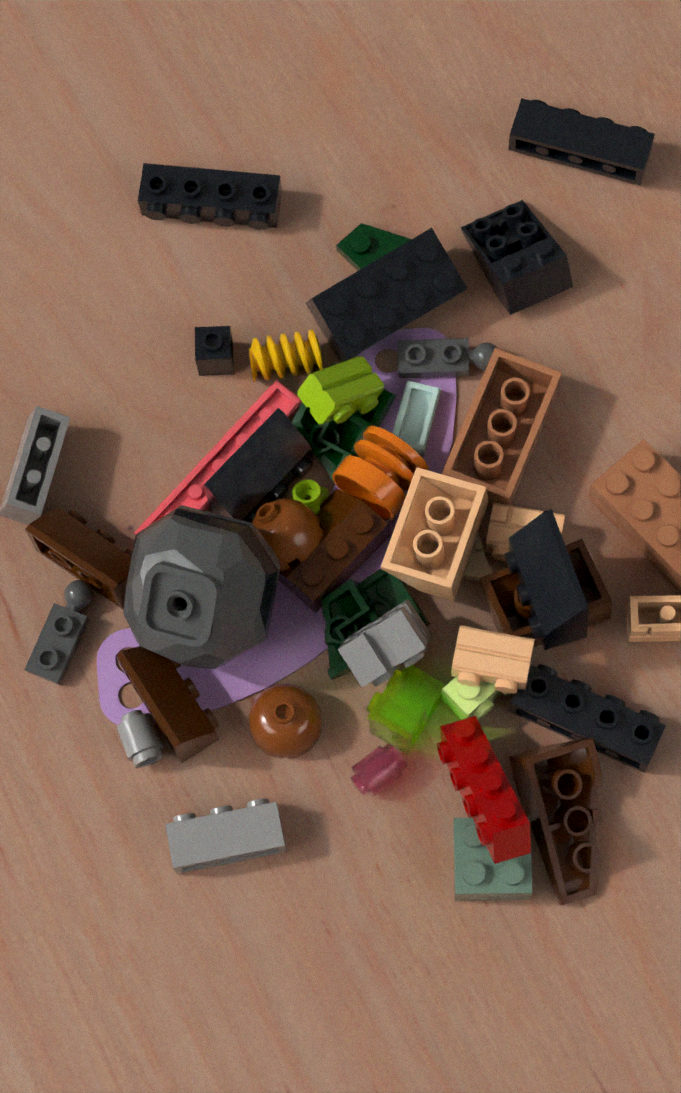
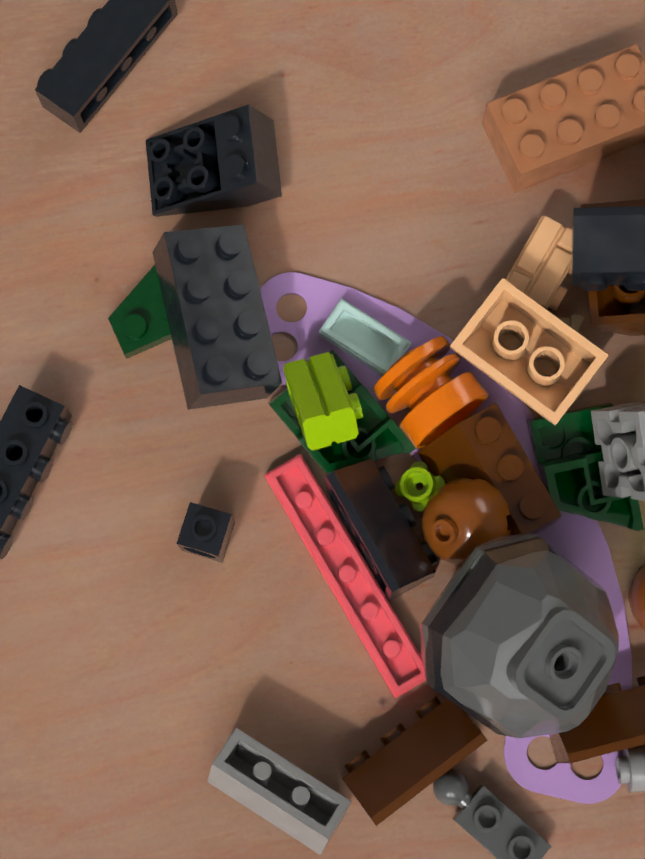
camera: 75 degrees left, 5 degrees up
(285, 355) = (240, 453): yellow piece -> none
(440, 357) = (304, 283): dark grey plate -> none
(503, 425) = (418, 247): nougat brick -> none

